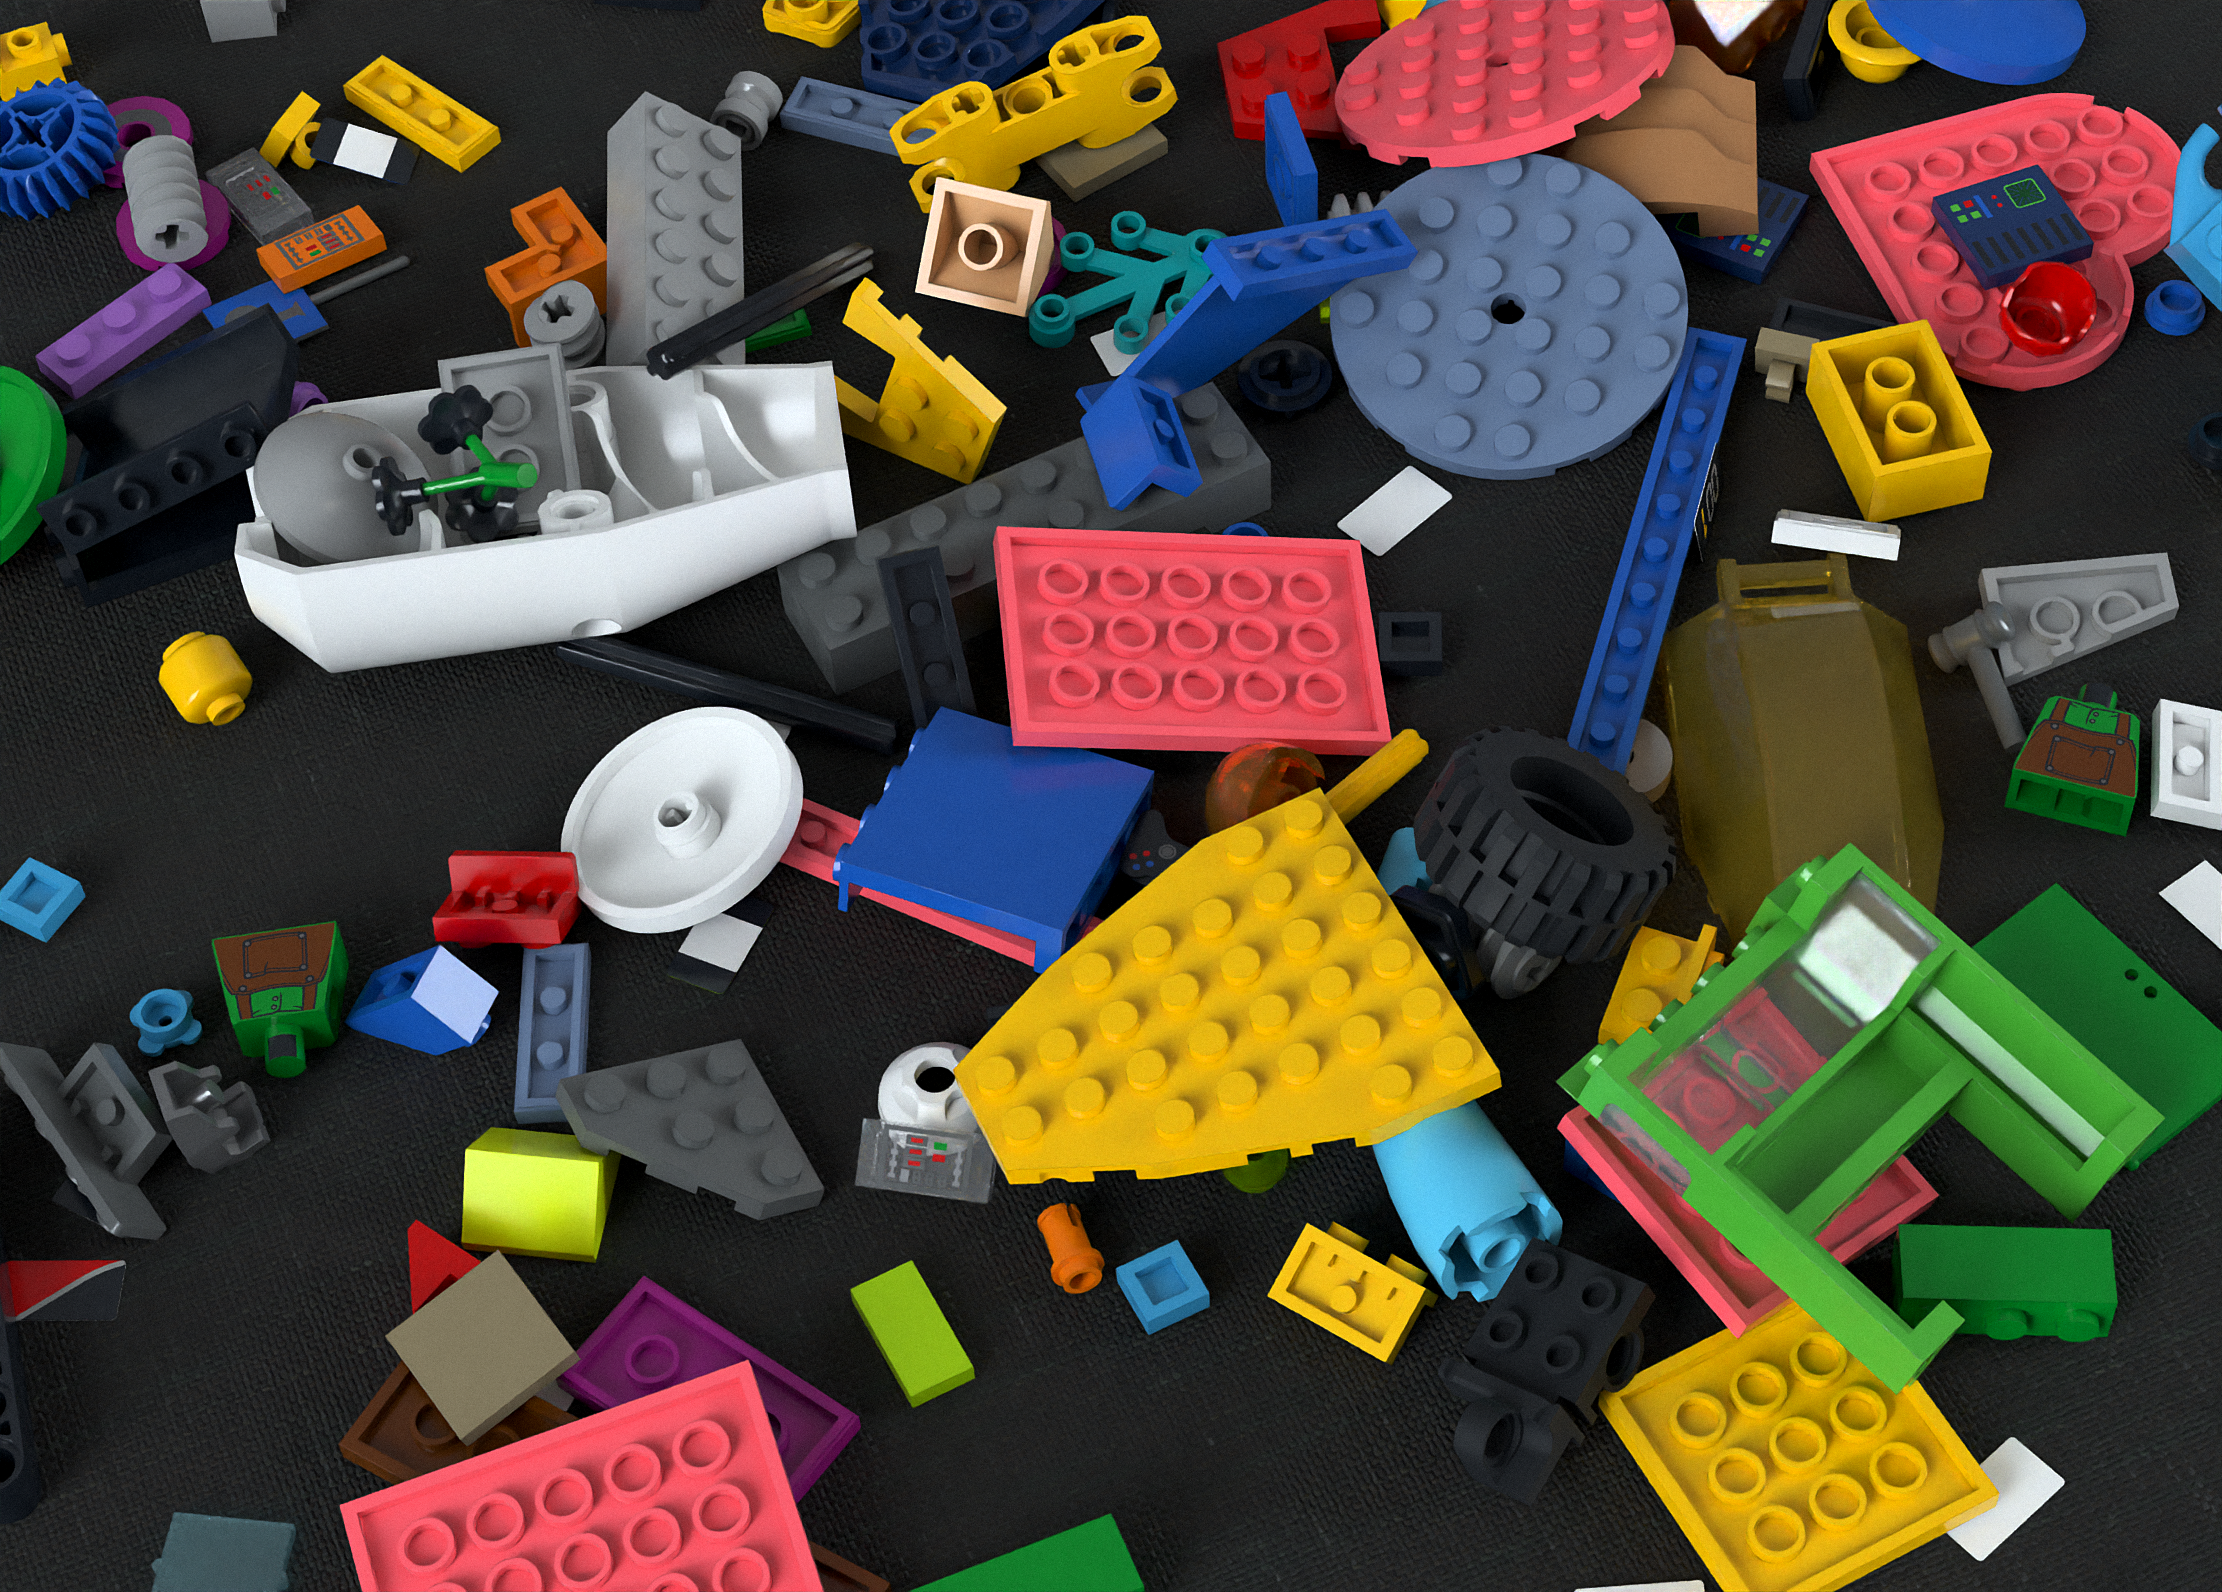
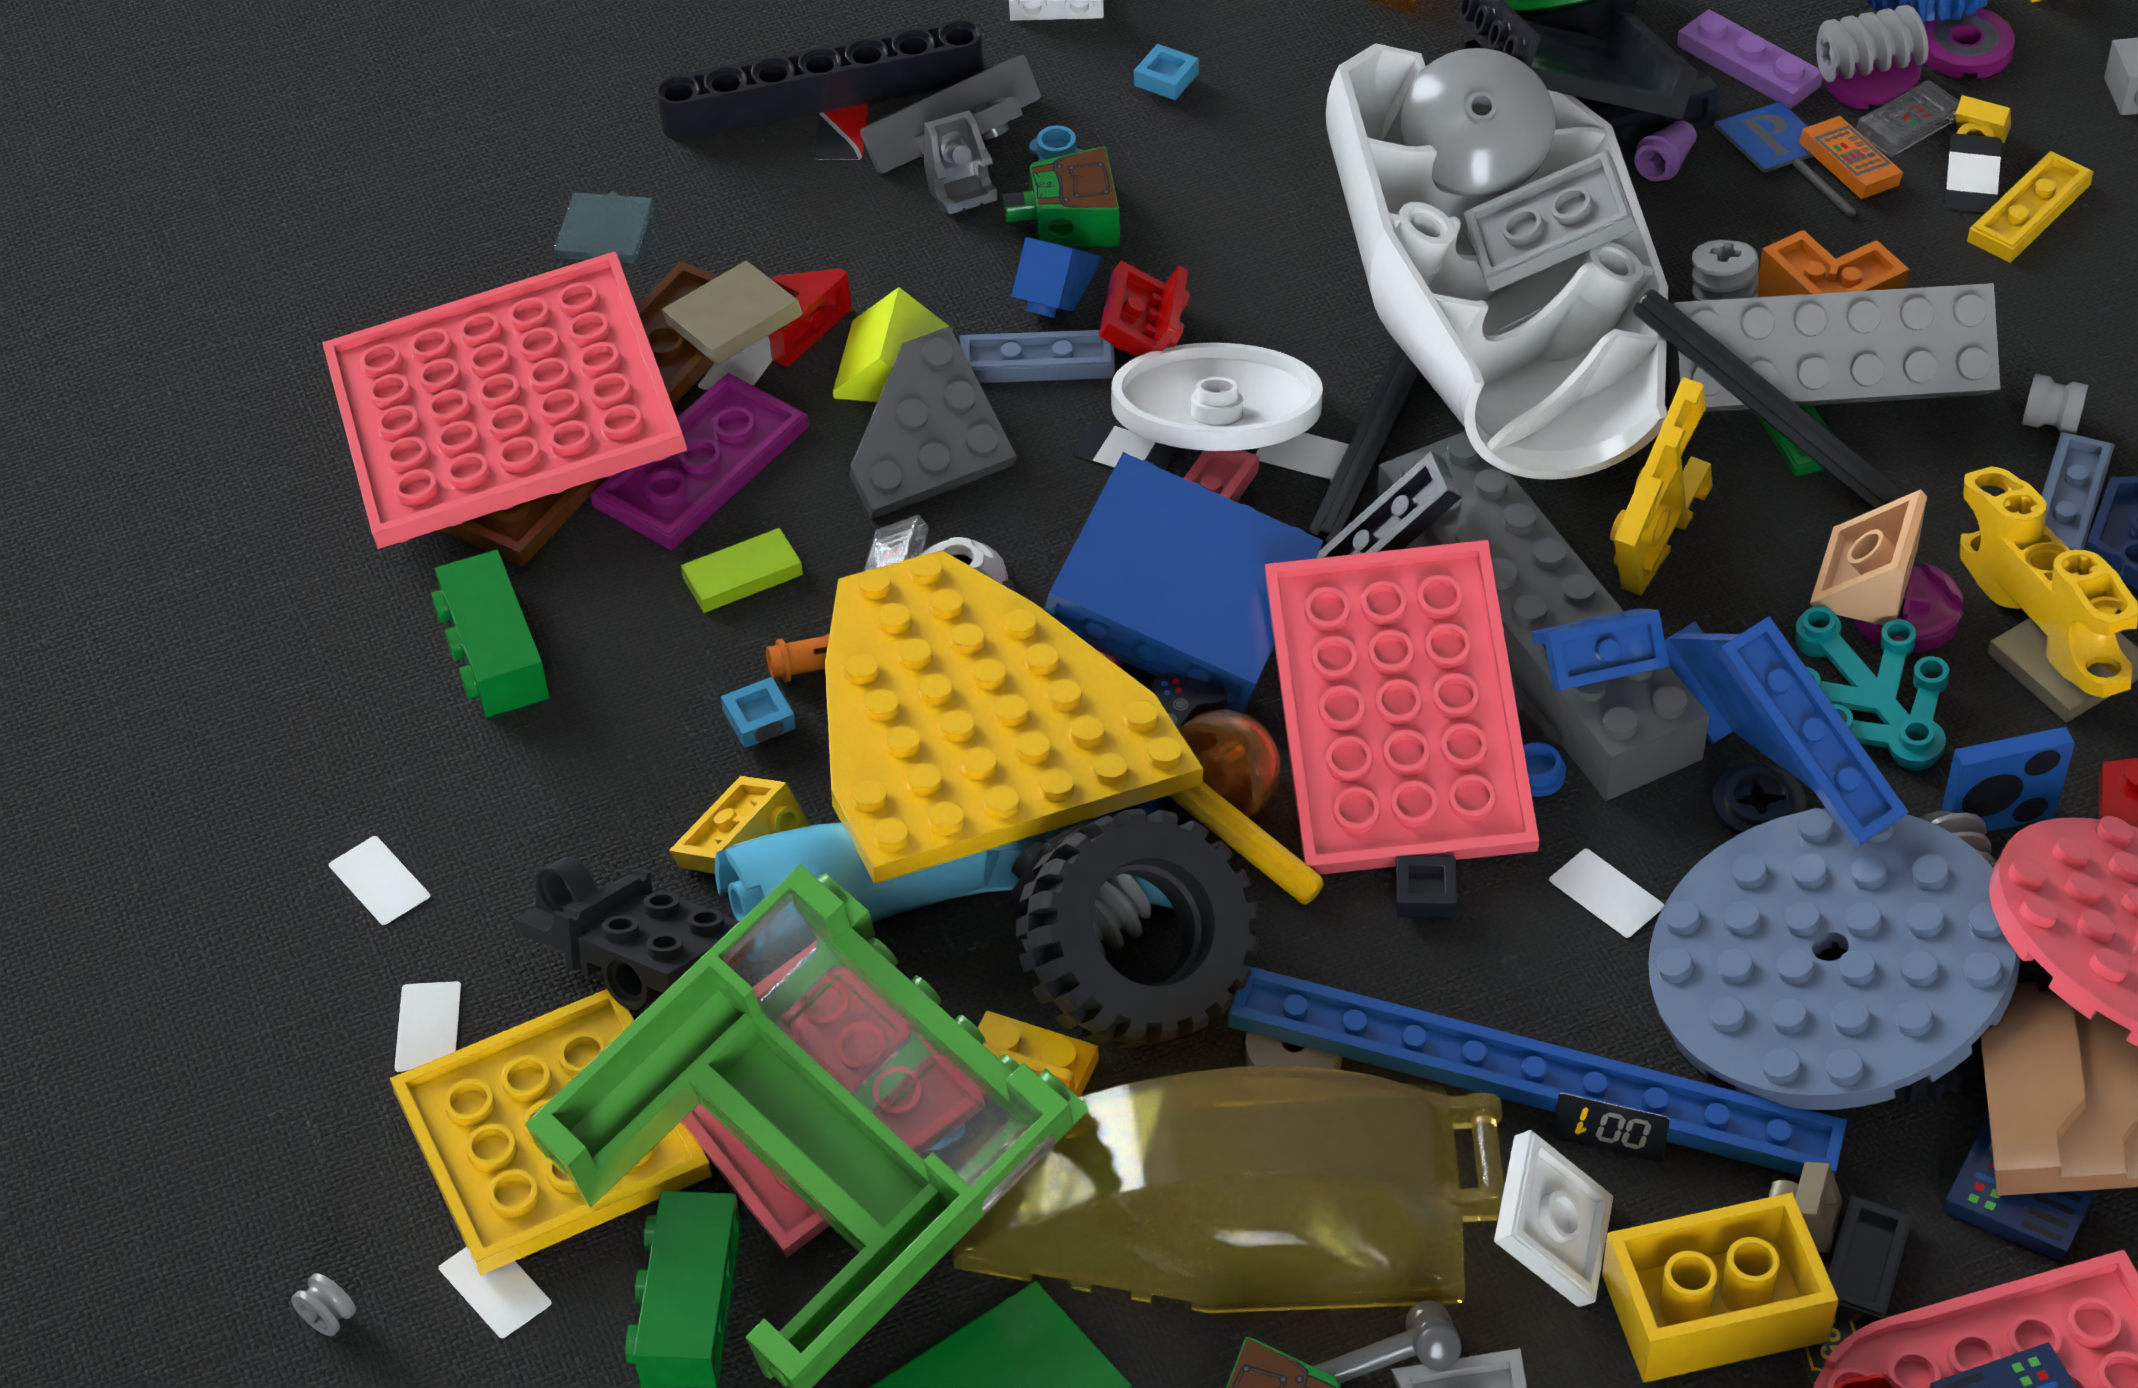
camera: 90 degrees right, 5 degrees down
(478, 500) = (1453, 130): black plant -> none

